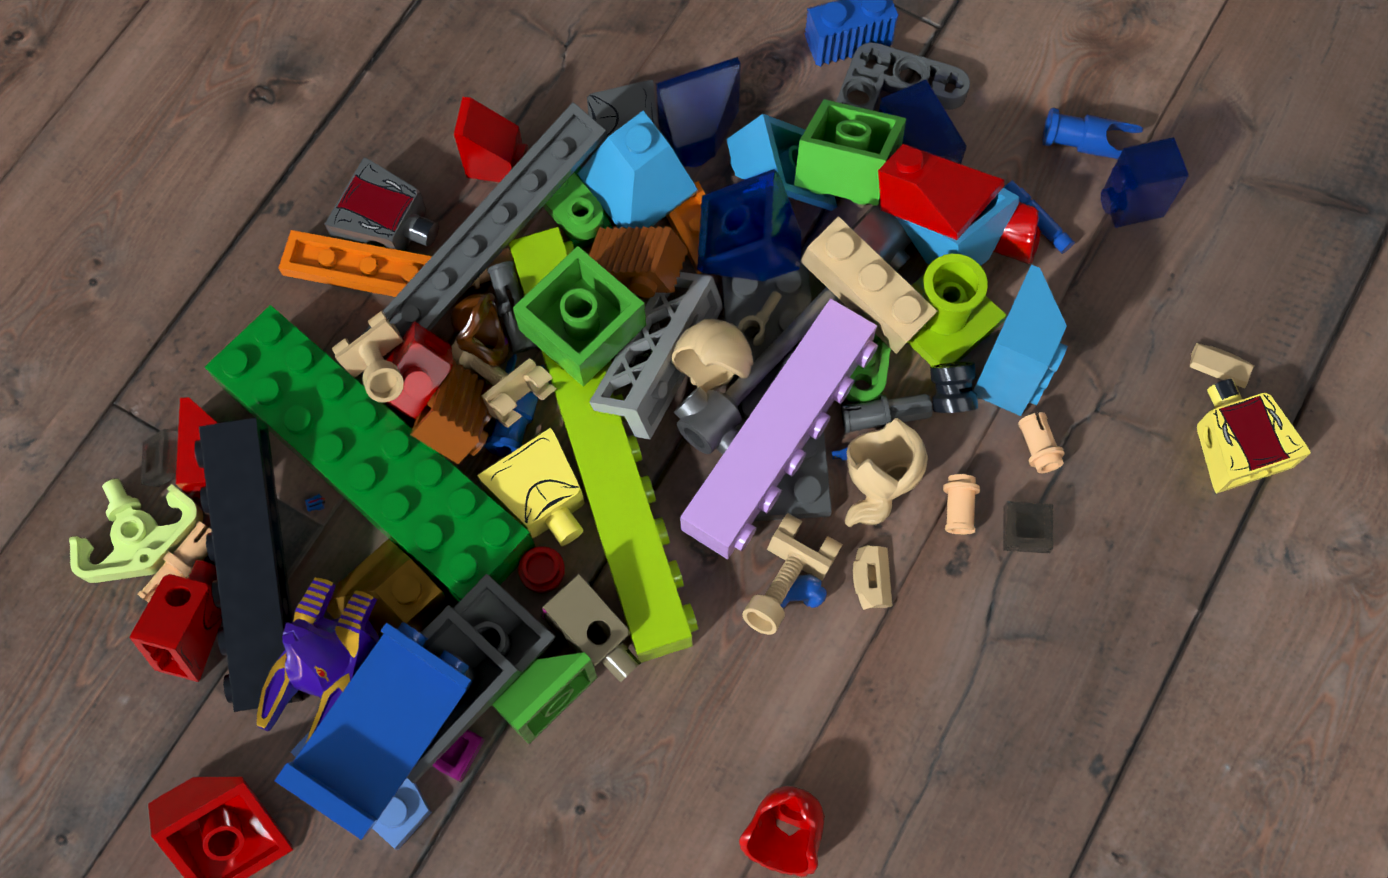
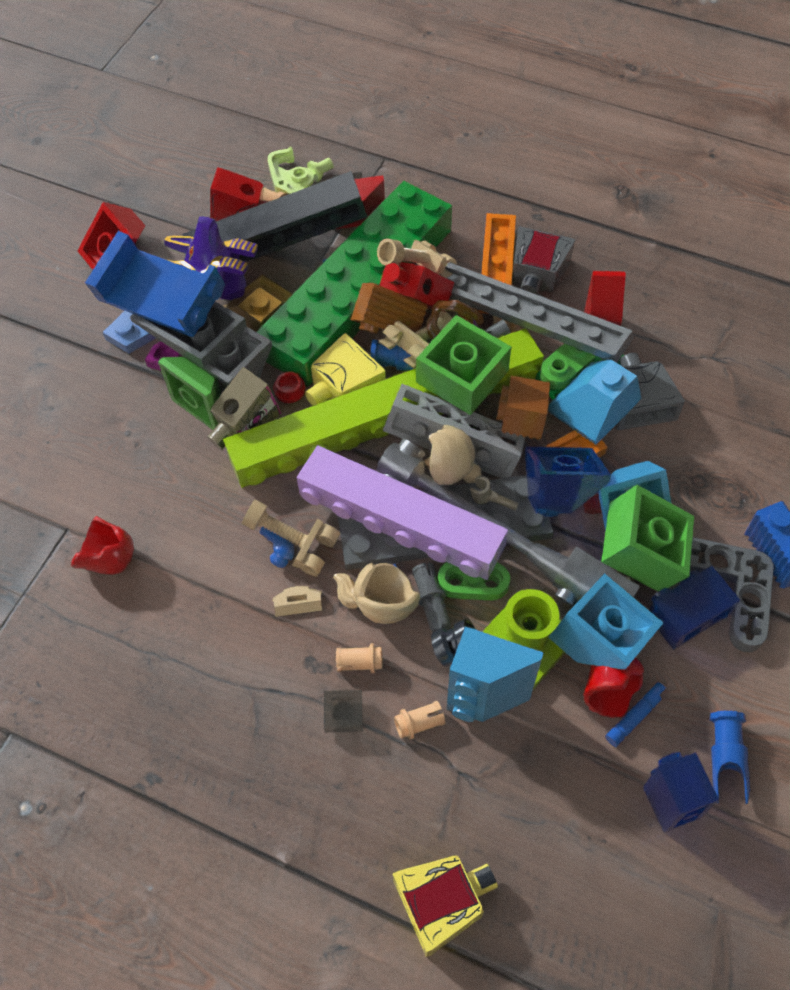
camera: 85 degrees right, 10 degrees down
(699, 110) = (665, 436): clear blue slope -> none
(867, 284) = (525, 554): tan brick -> none
(935, 191) = (623, 598): red slope -> none
(1221, 364) = (517, 884): tan piece -> none

